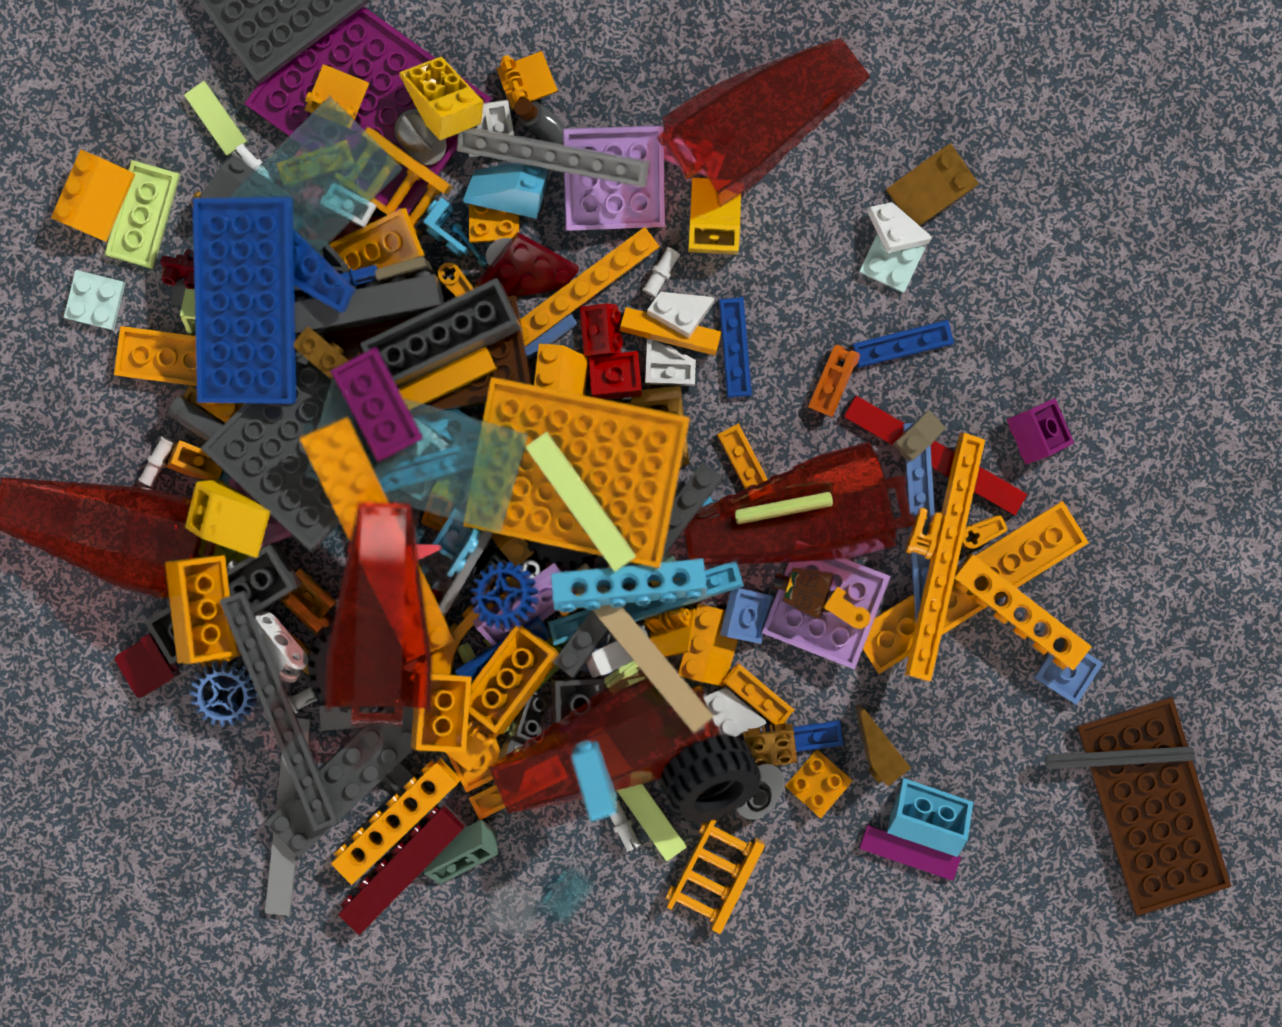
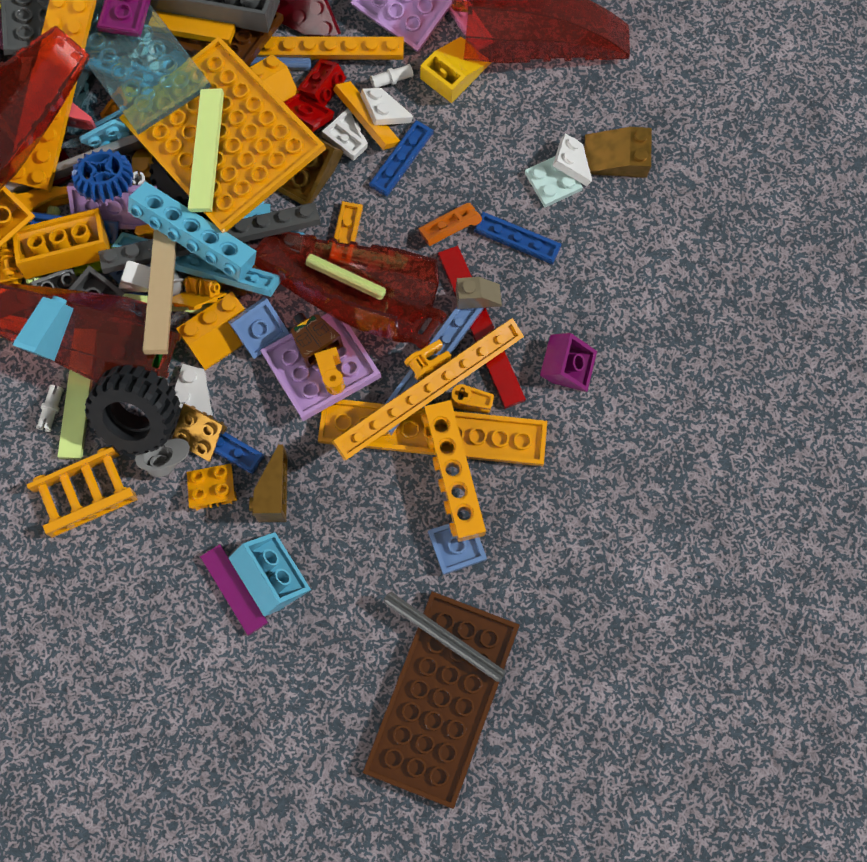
camera: 35 degrees right, 15 degrees down
(758, 695) = (221, 391): light orange tile -> none

